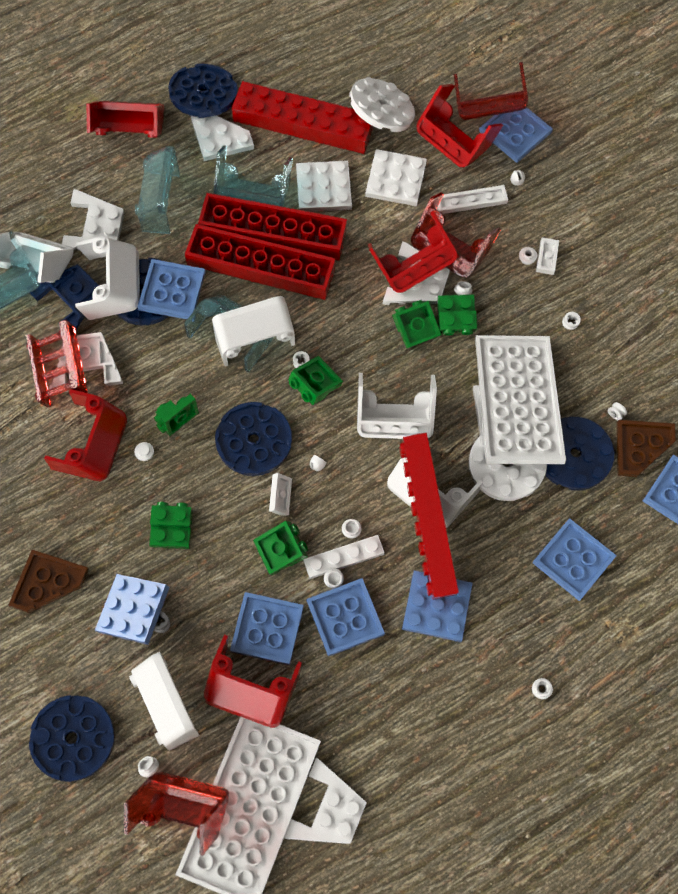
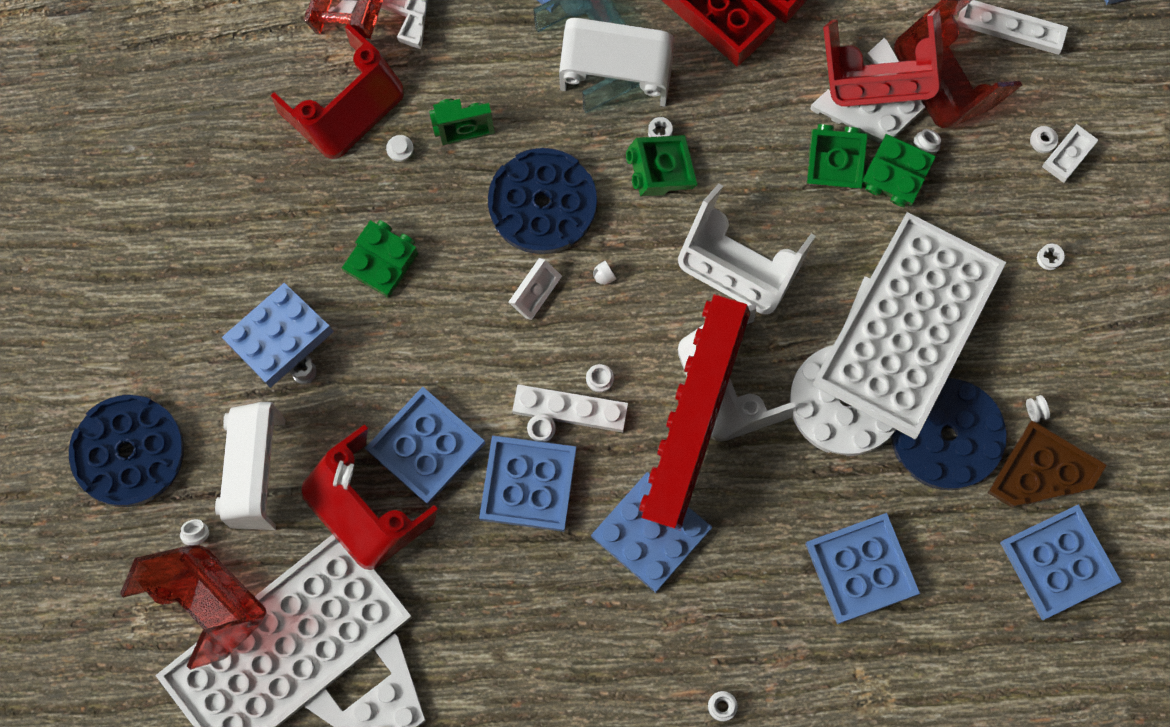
camera: 35 degrees right, 5 degrees up
(46, 580) = (197, 248): reddish brown plate -> none
(232, 673) = (343, 475): none -> white bush
(281, 547) = (498, 355): green plate -> none
(515, 179) = (1090, 23): white hinge -> none

